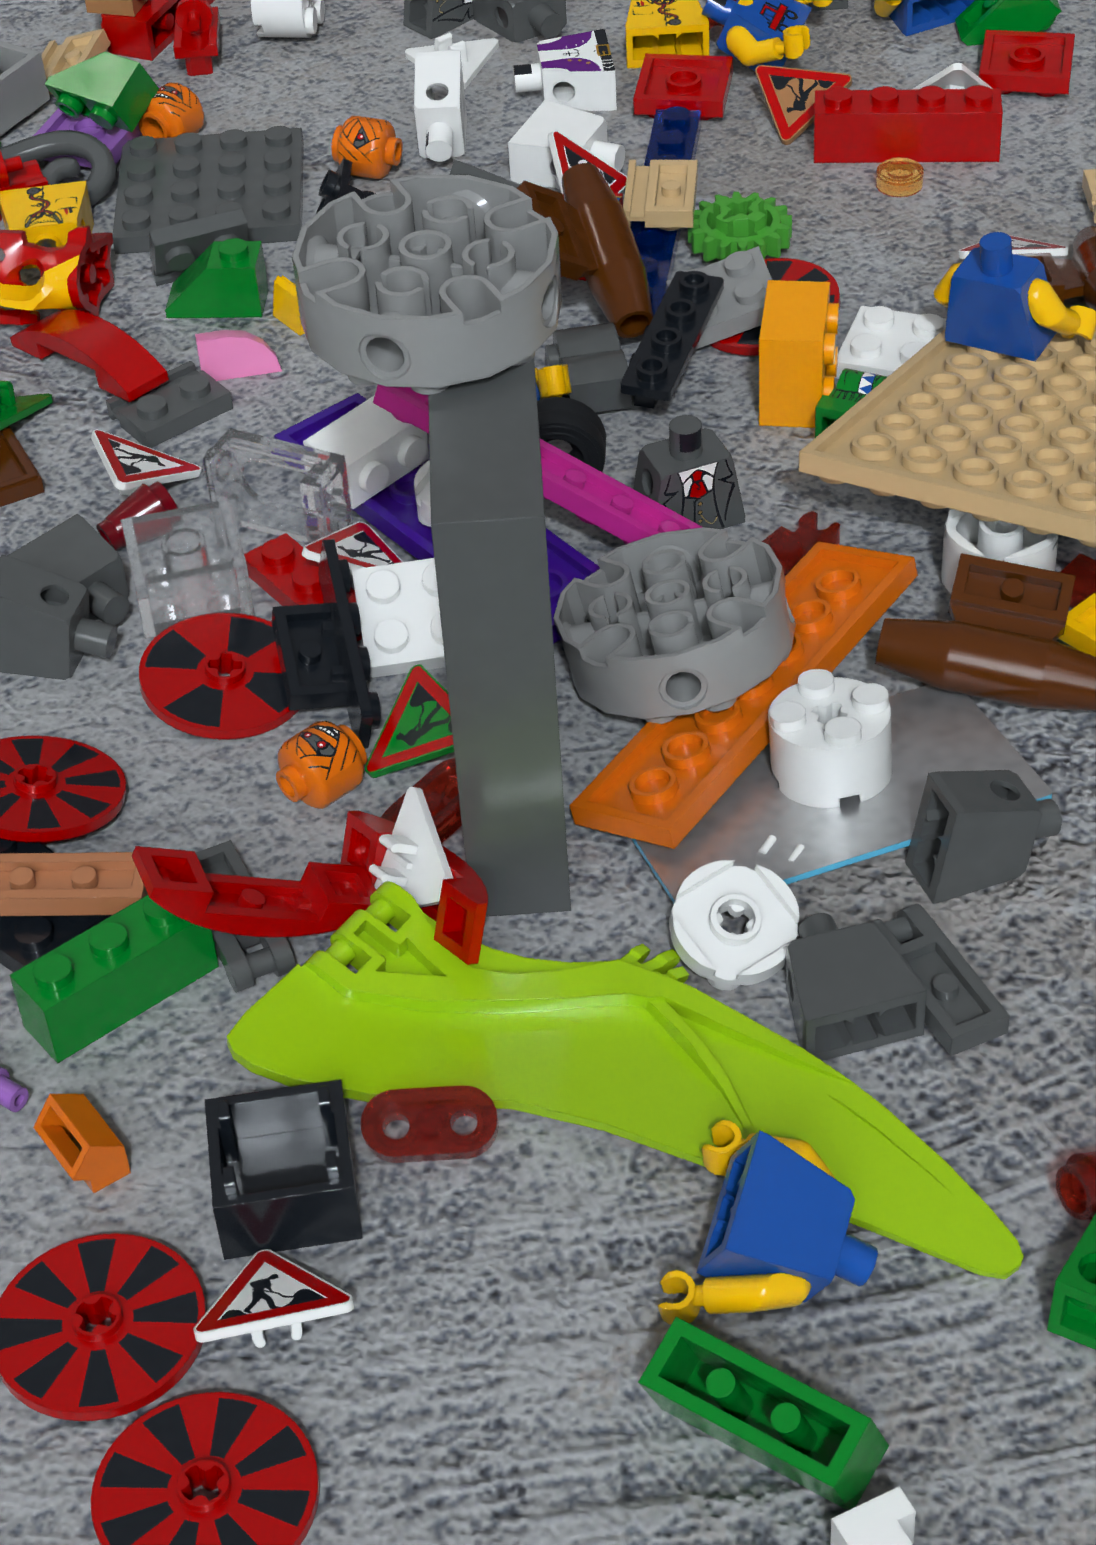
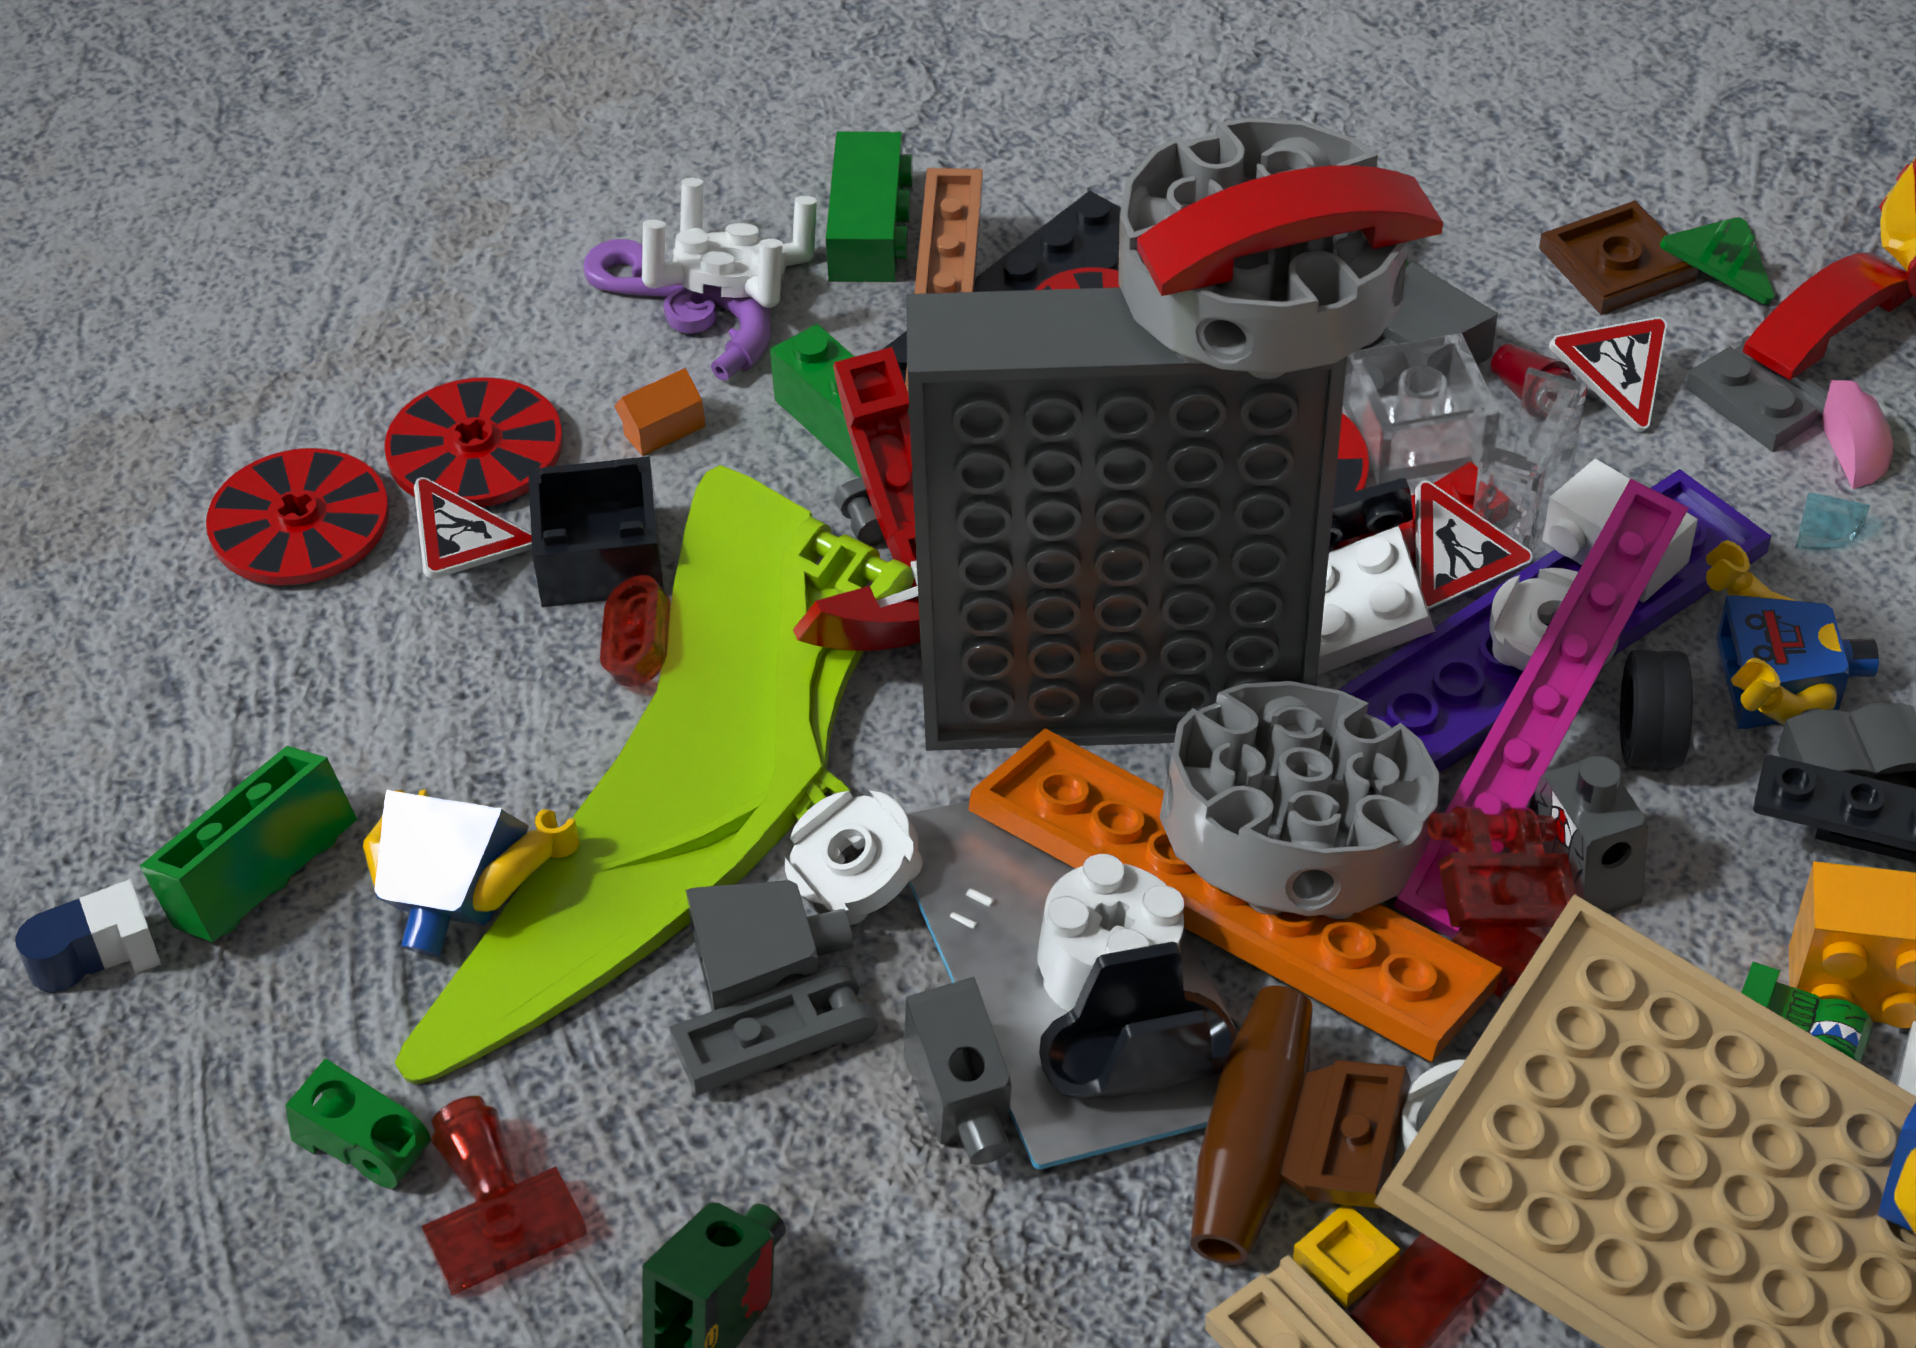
camera: 90 degrees right, 5 degrees up
(323, 381) = (1830, 522): none -> clear light blue tile
(481, 223) = (1281, 210): none -> red slope
(746, 512) = (1501, 888): none -> clear red plate
(950, 710) = (1135, 1029): none -> black piece

